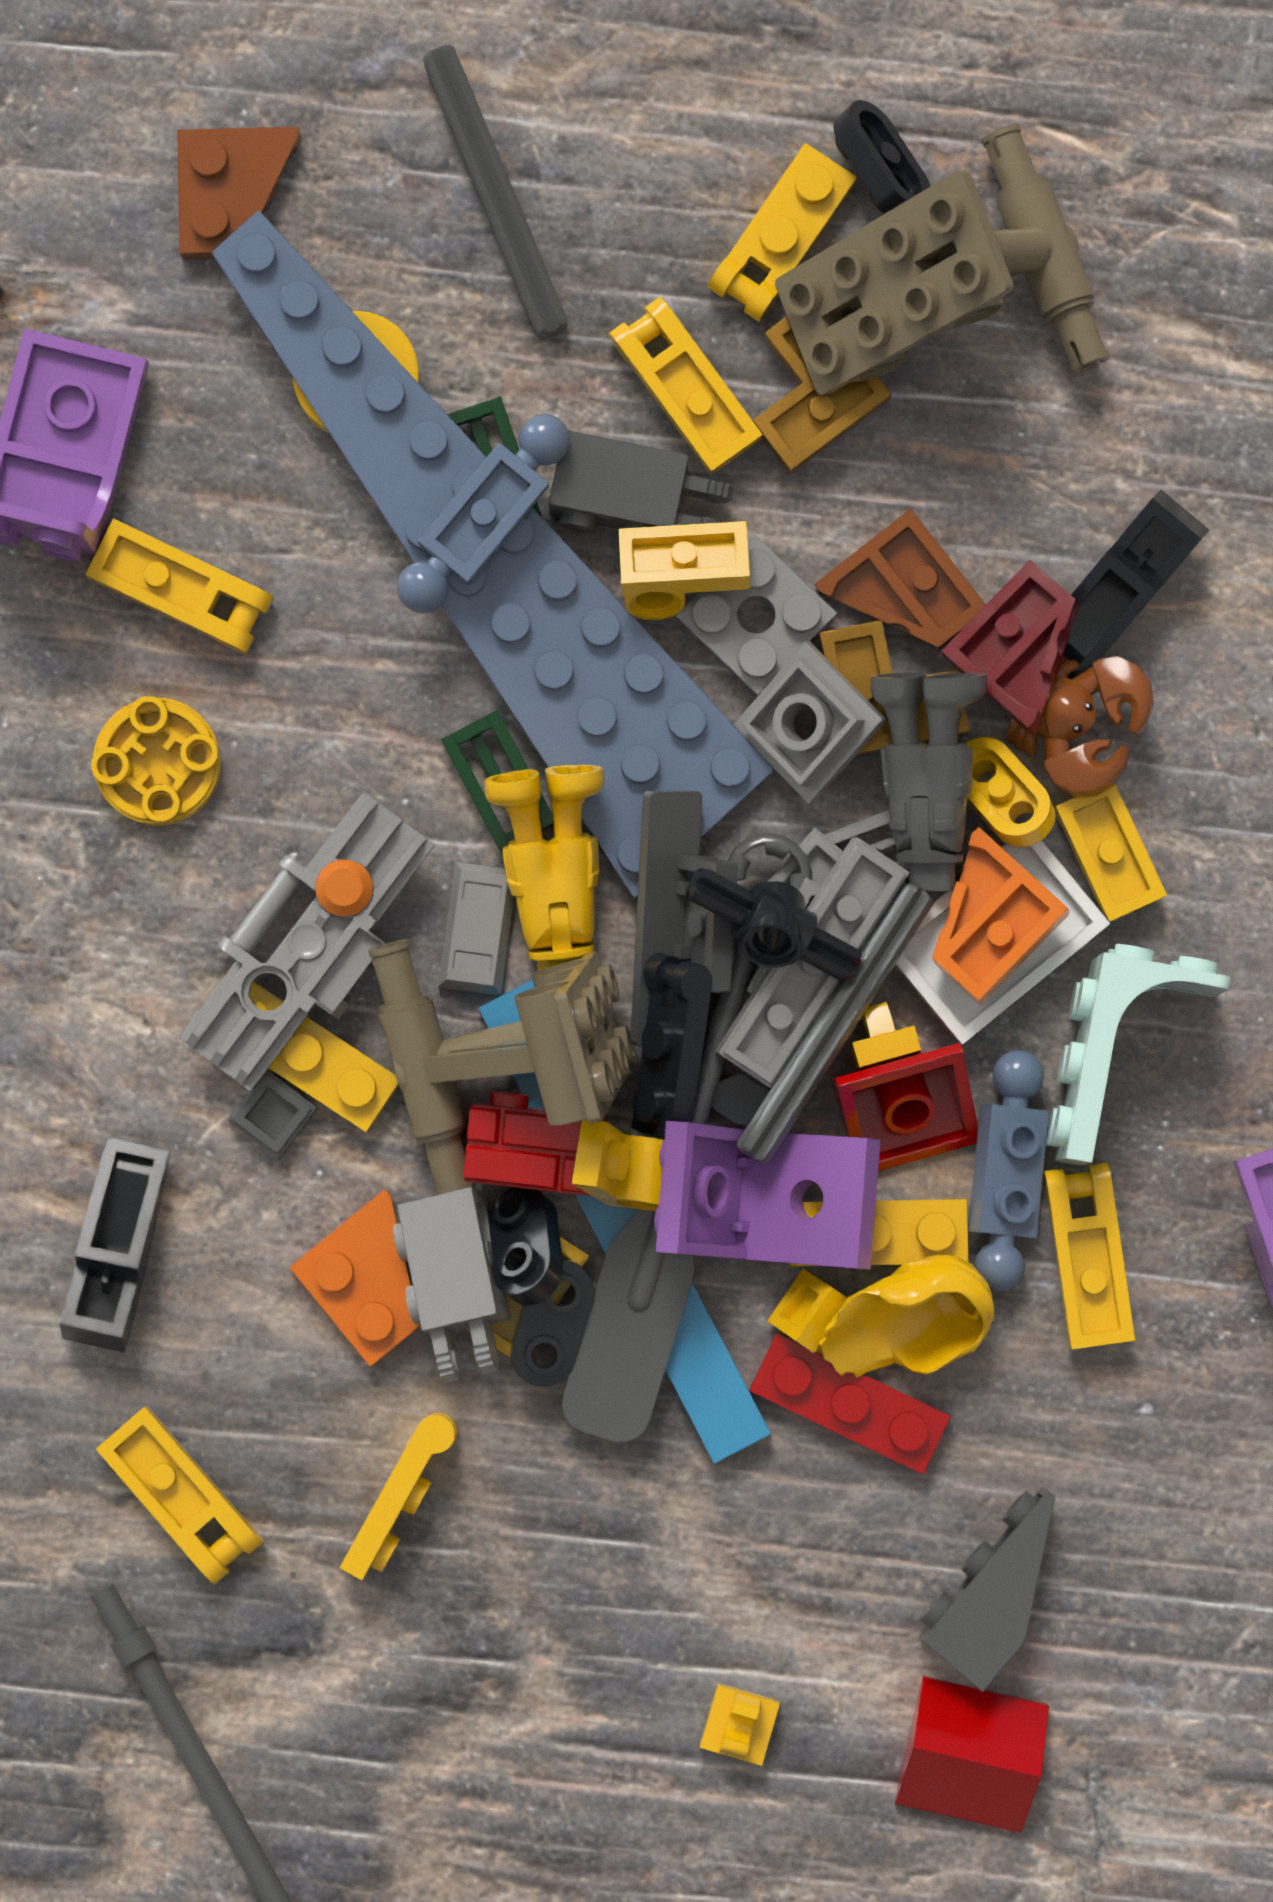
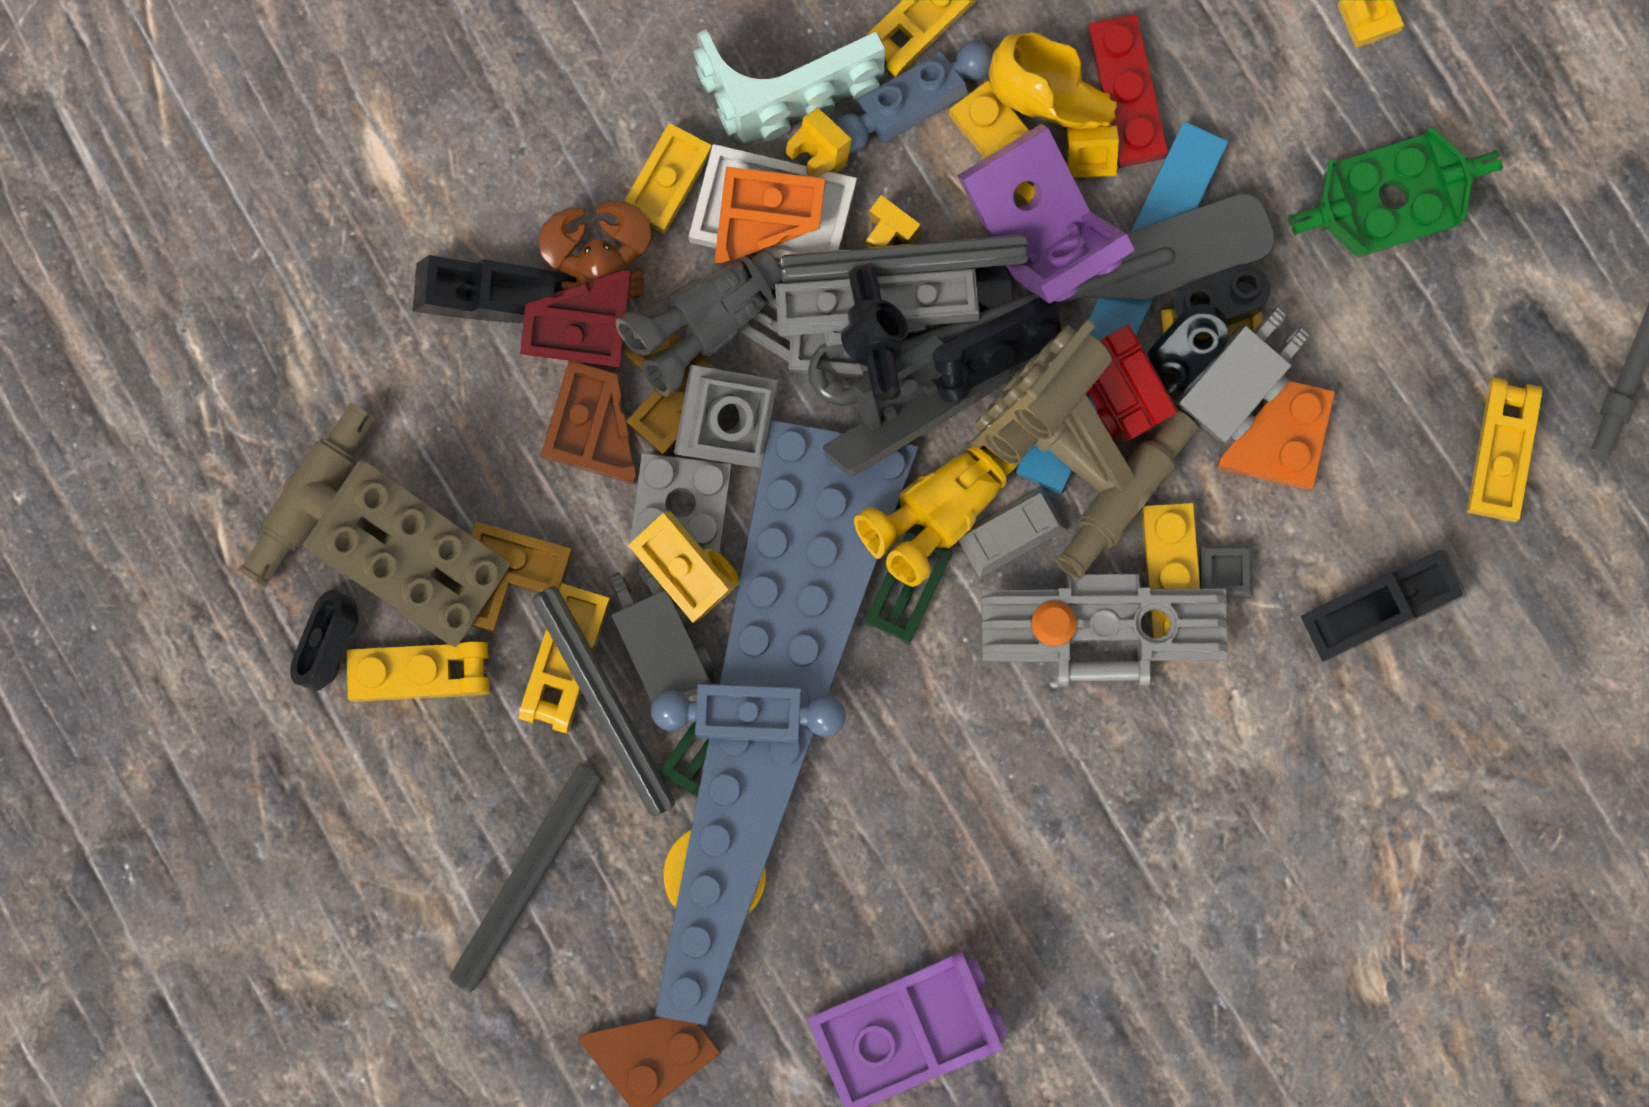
camera: 125 degrees left, 5 degrees down
(157, 761) = (1060, 814): yellow tile -> none
(177, 585) = (939, 887): yellow plate -> none
(401, 1492) = (1396, 314): yellow plate -> none
(515, 1646) = (1428, 172): none -> green plate
(610, 387) = (603, 701): none -> dark grey axle
(618, 1167) = (1099, 305): yellow plate -> none
(910, 1105) = (918, 184): red slope -> none
(1008, 794) = (676, 262): yellow plate -> none
(1025, 1038) = (822, 141): none -> yellow tile

